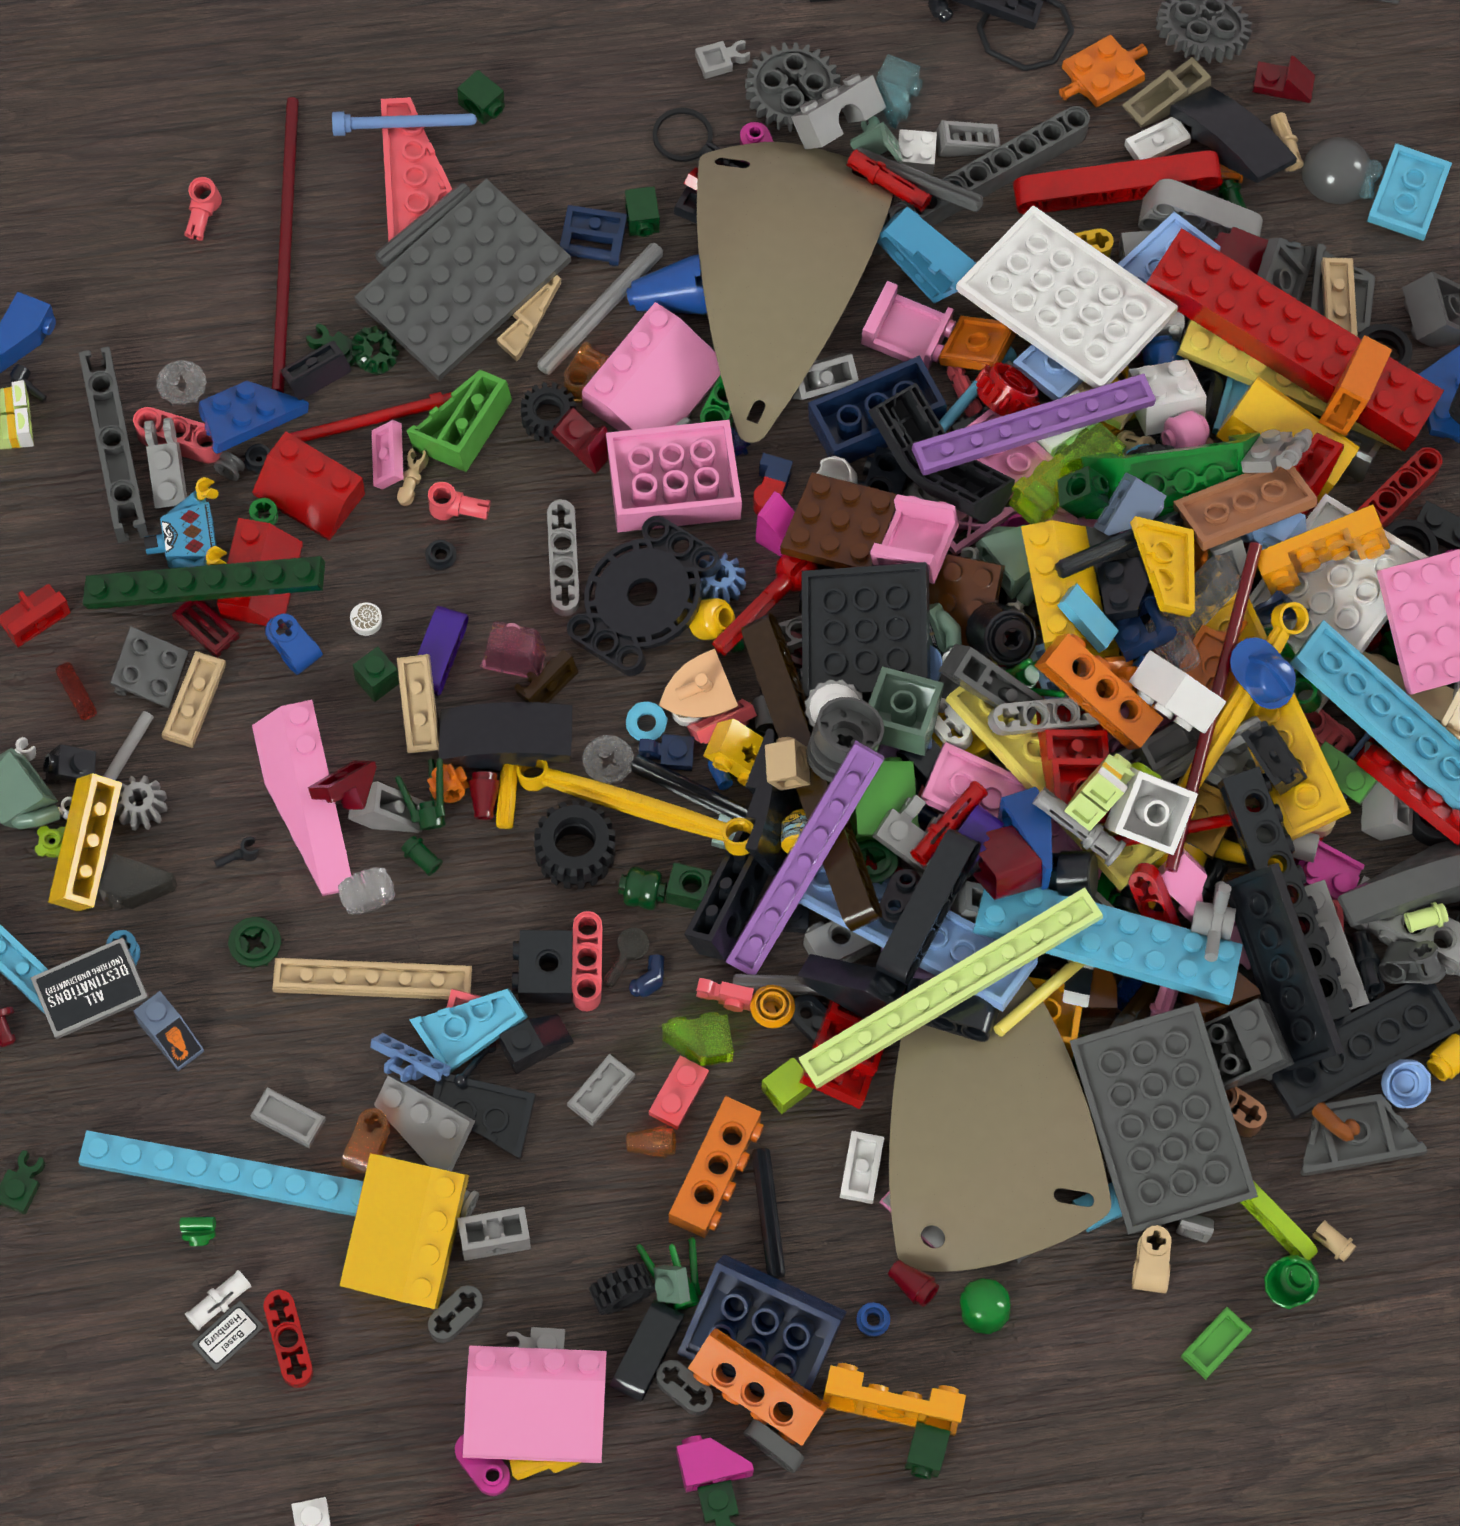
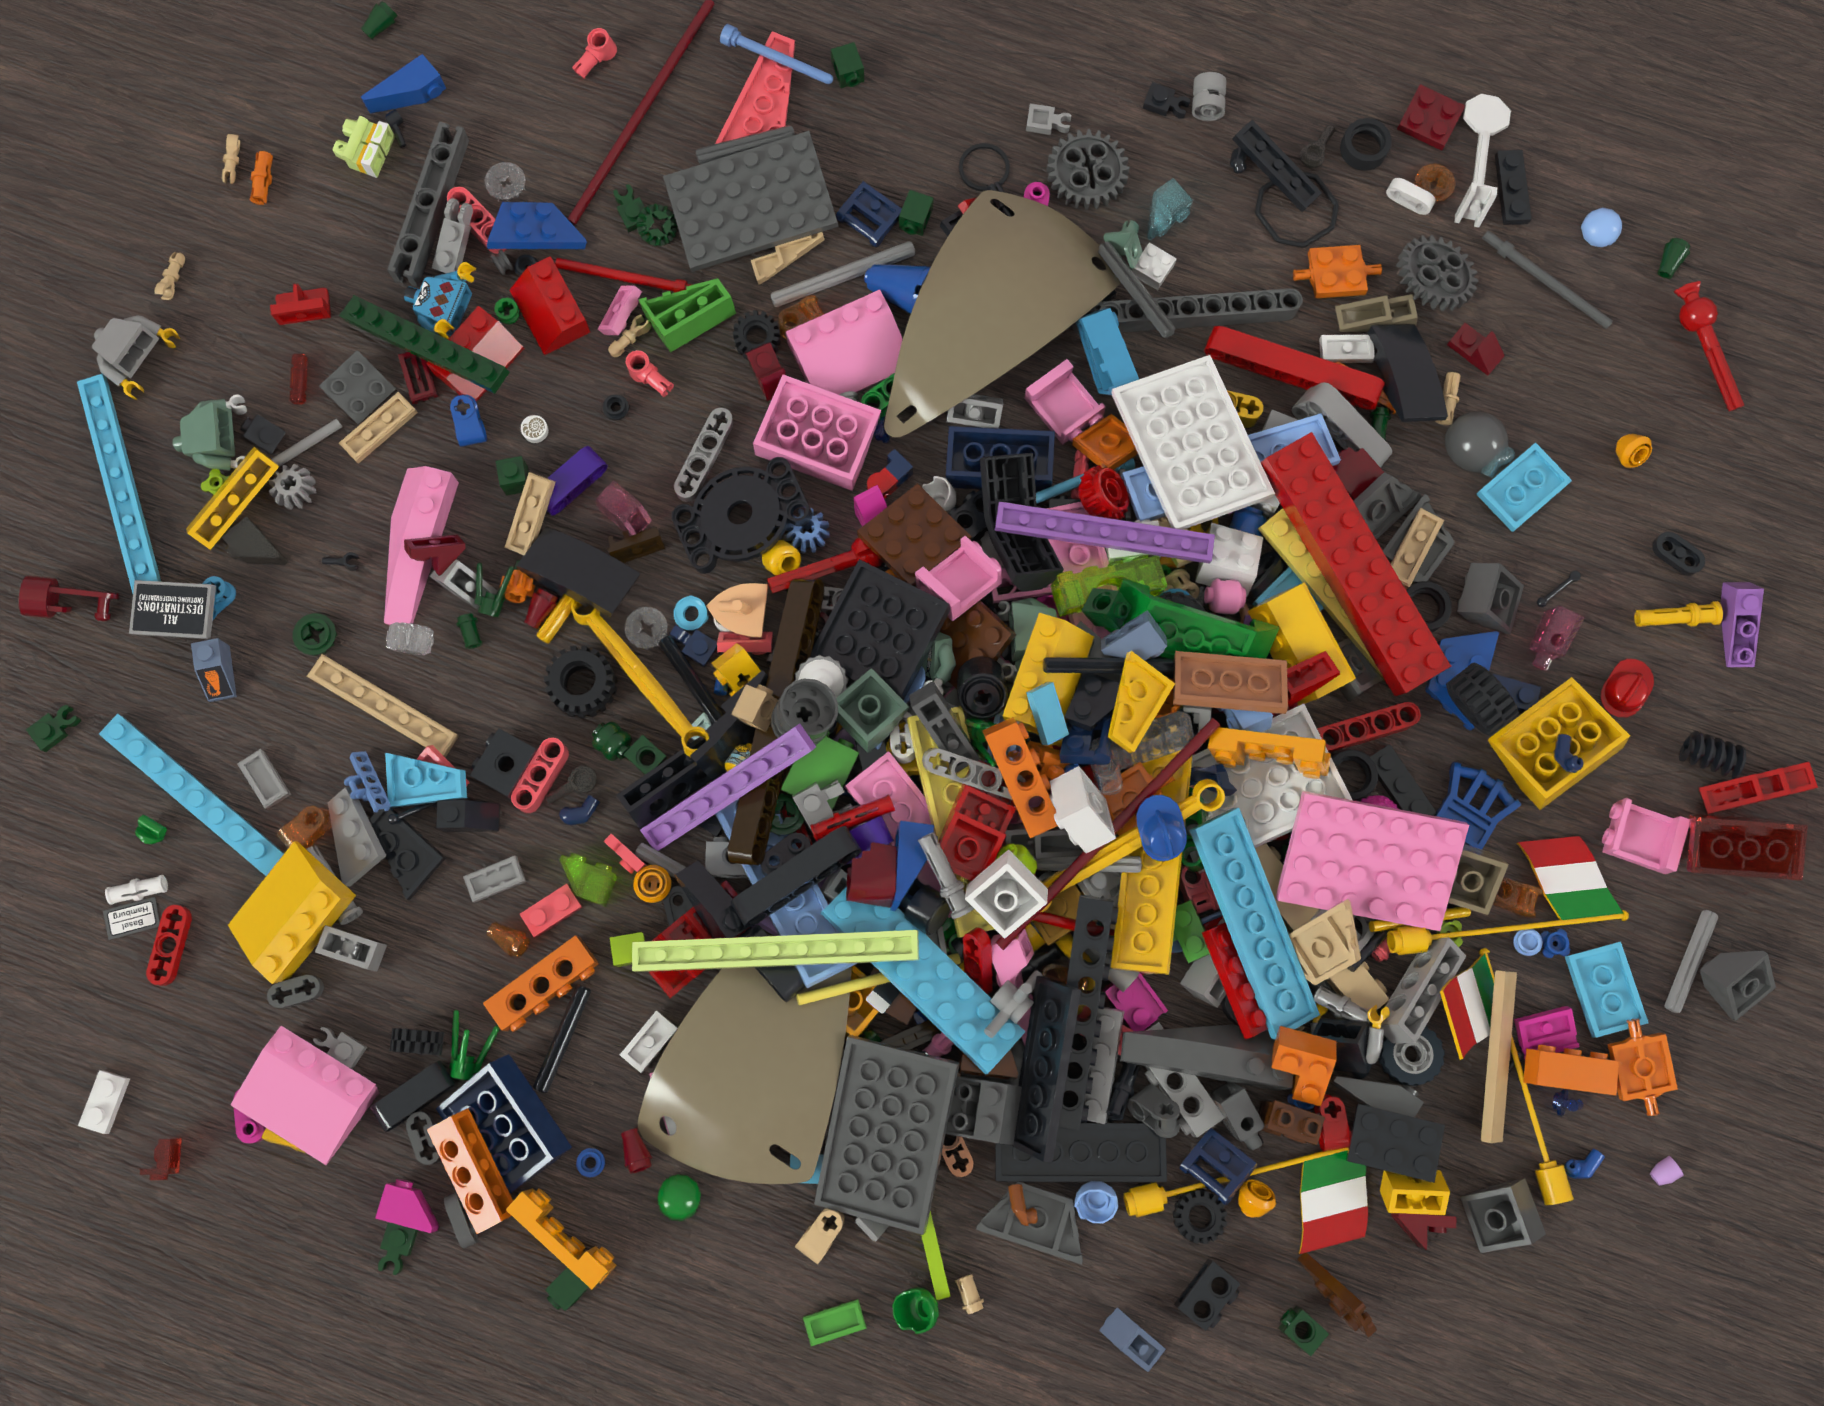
camera: 30 degrees right, 10 degrees up
(316, 370) = (603, 219): black slope -> none
(671, 1284) = (451, 1059): sand green plate -> none
(819, 120) = (1086, 205): light grey arch -> none
(882, 176) = (1108, 270): red pin -> none
(950, 145) = (1195, 263): light grey slope -> none
(1100, 791) = (972, 860): yellowish green hips -> none
(1274, 757) = (1132, 899): black hinge -> none
(1276, 450) = (1281, 651): light grey plate -> none
(1355, 385) = (1377, 629): orange slope -> none
(1426, 917) = (1186, 1083): yellowish green pin -> none

